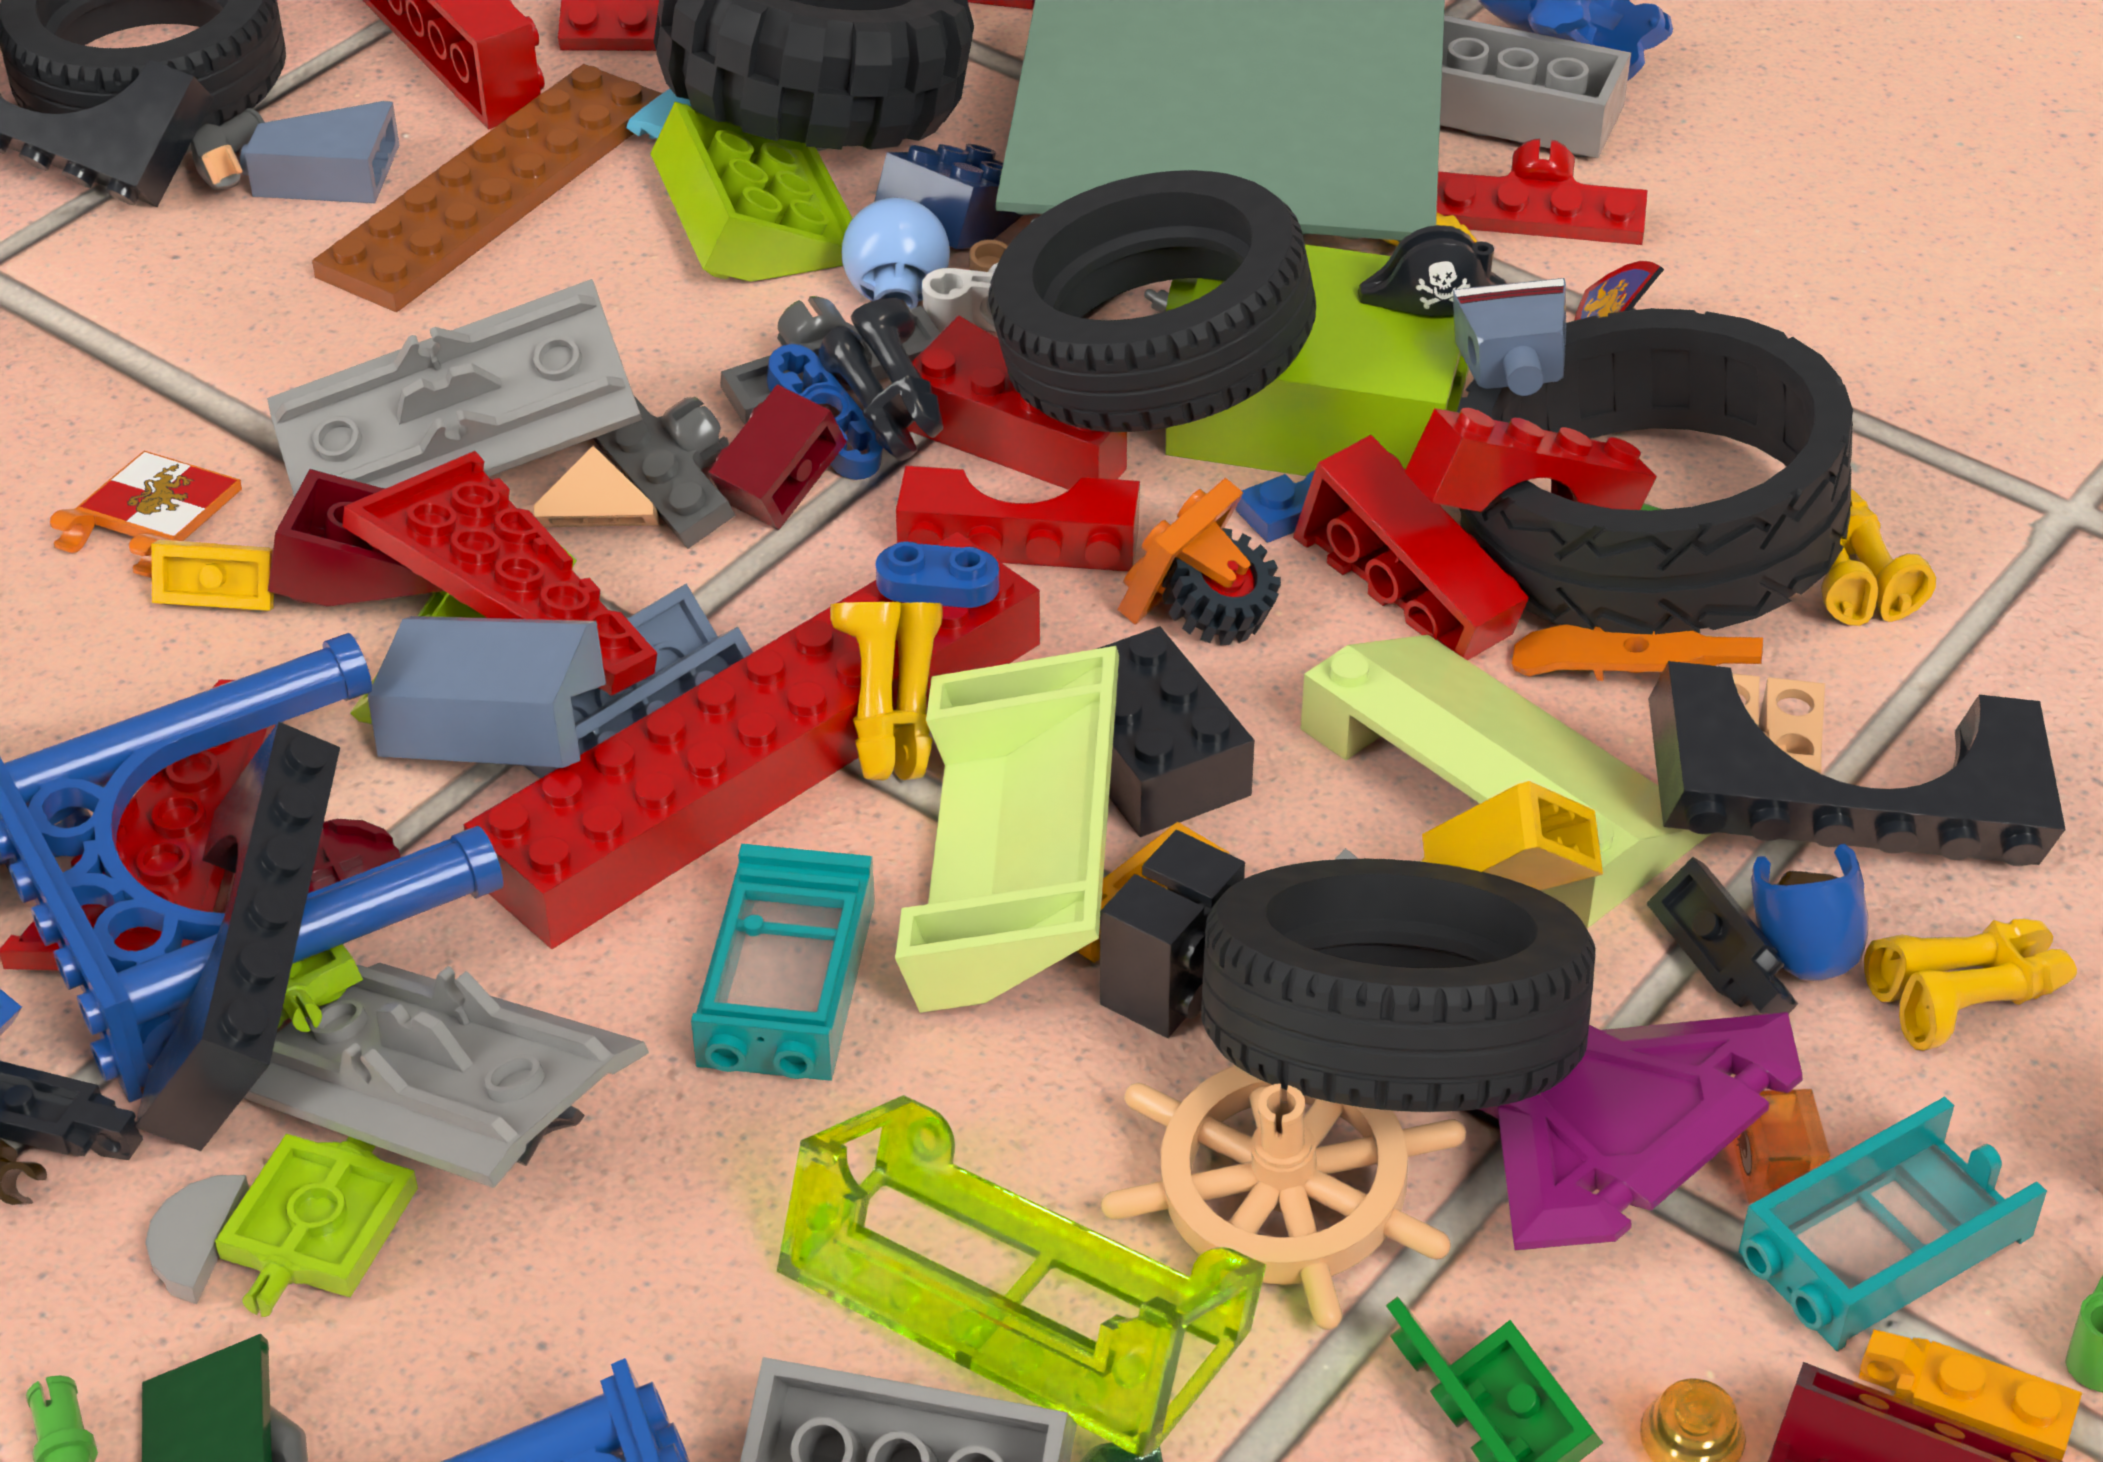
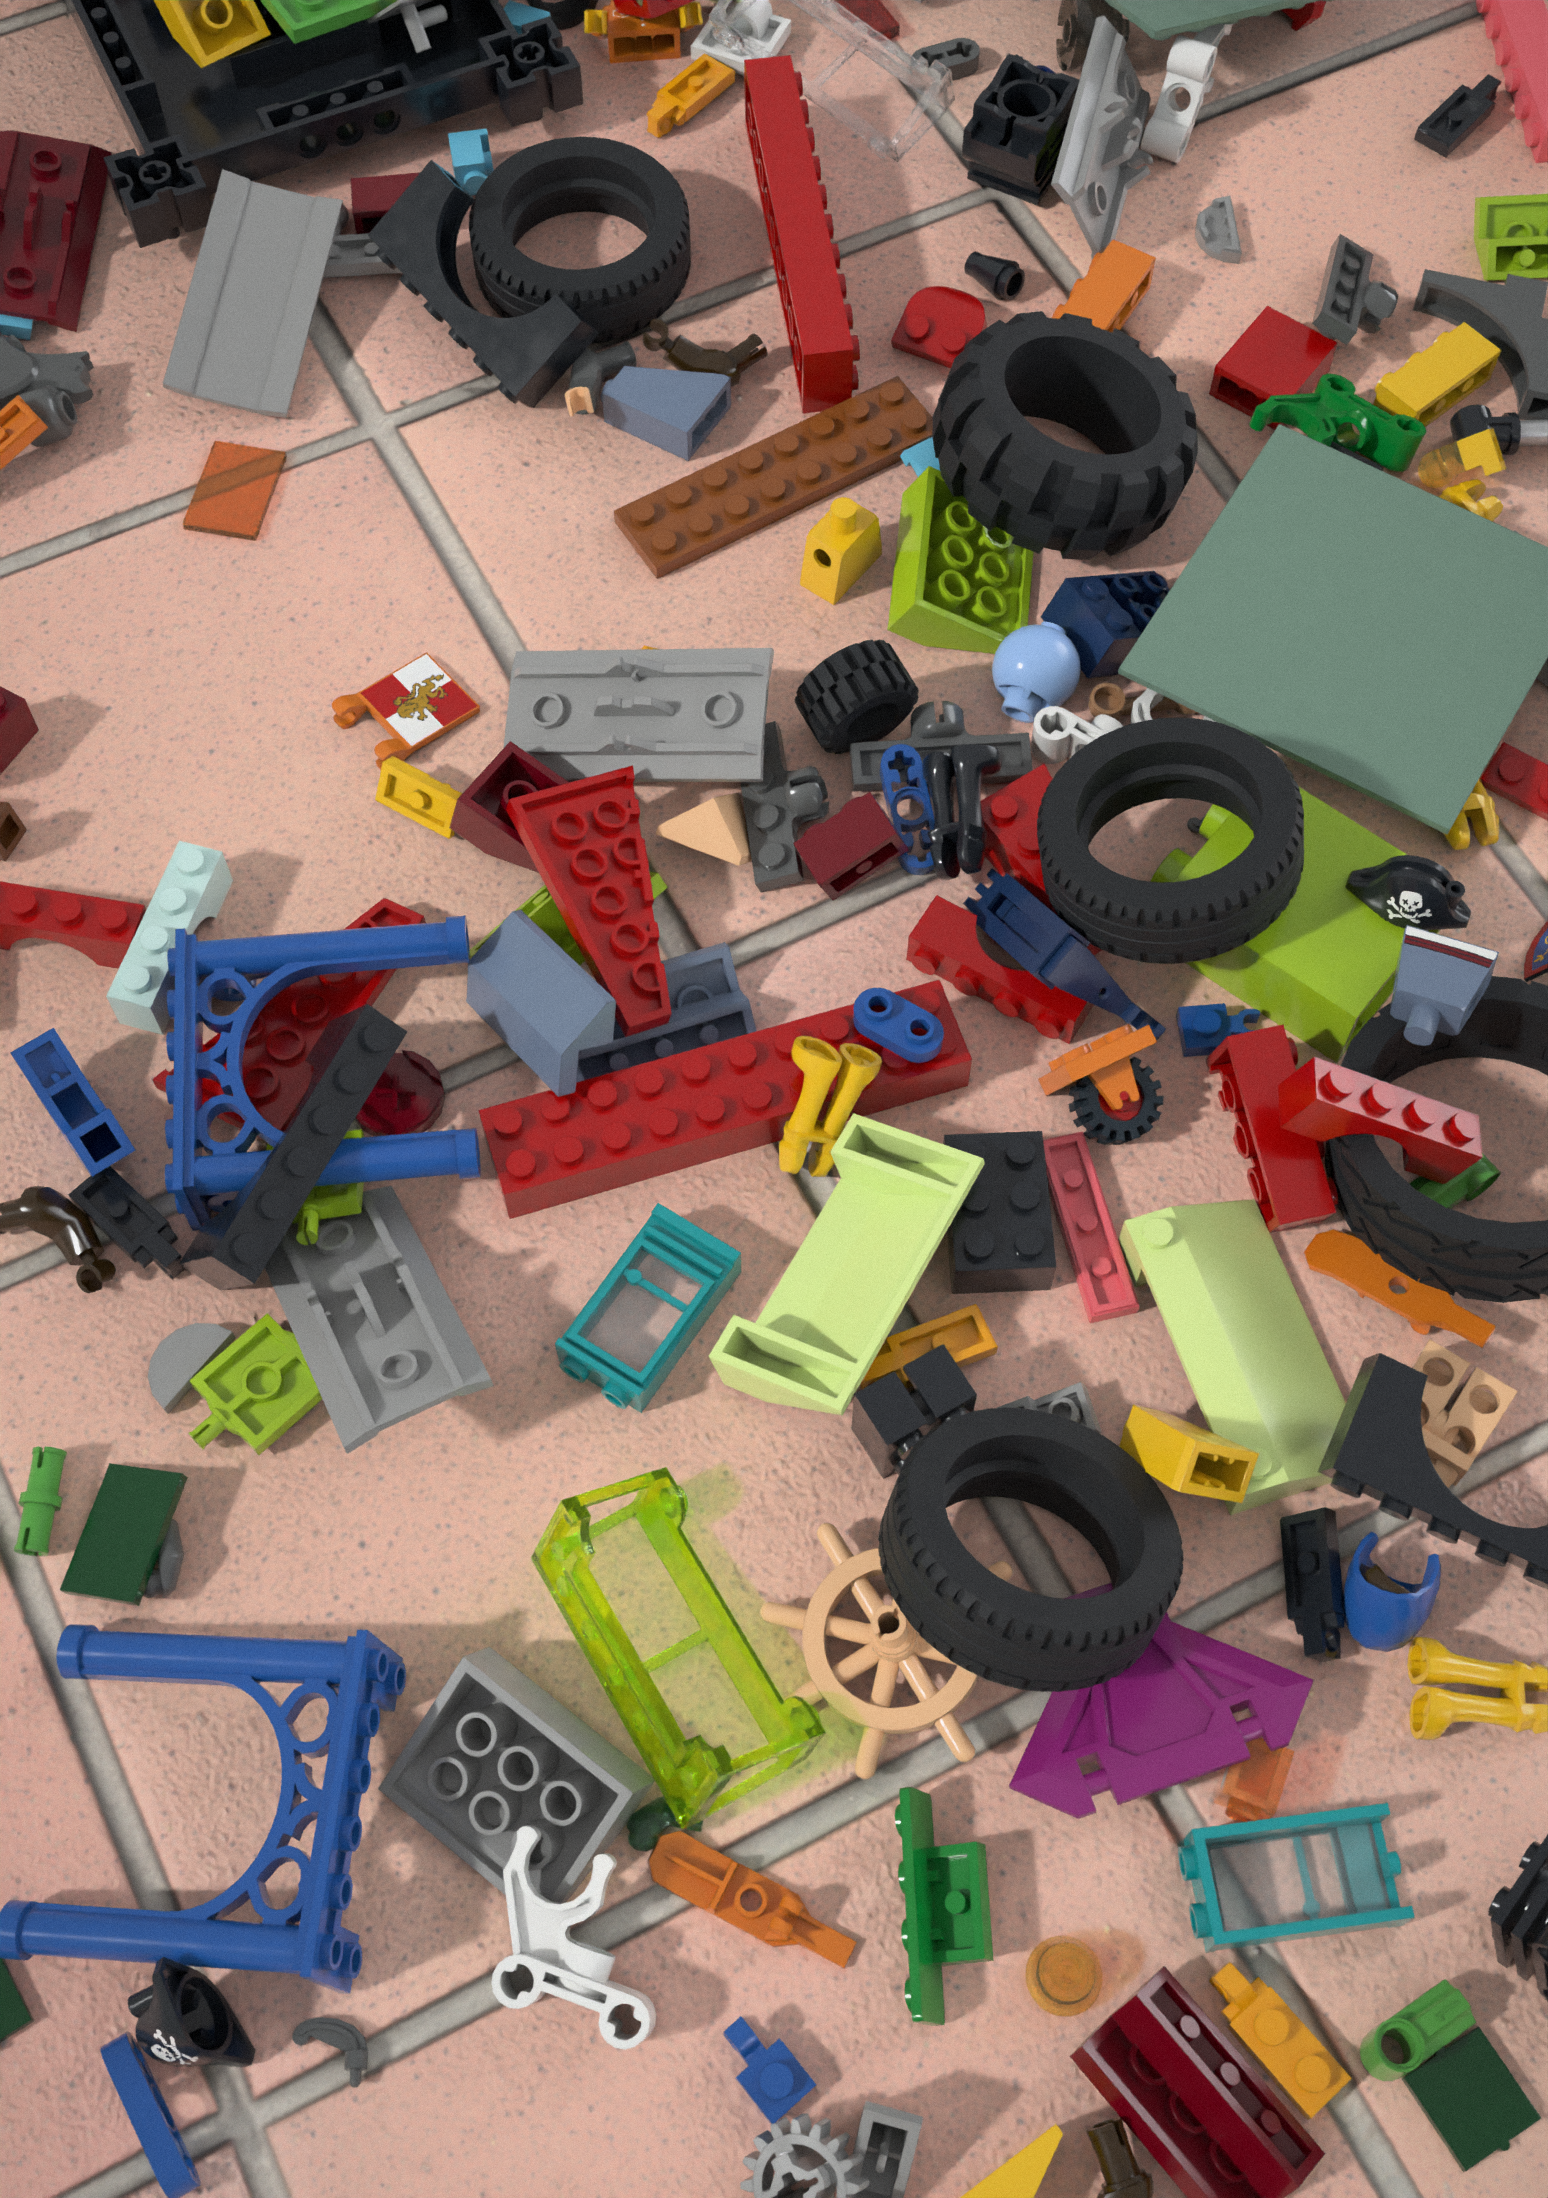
camera: 25 degrees right, 20 degrees up
(319, 98) = (690, 357): none -> dark brown arm
(608, 210) = (848, 541): none -> yellow torso
(706, 317) = (856, 696): none -> black tyre
(1062, 456) = (1050, 948): none -> dark blue hinge
(1283, 738) = (1088, 1229): none -> coral tile

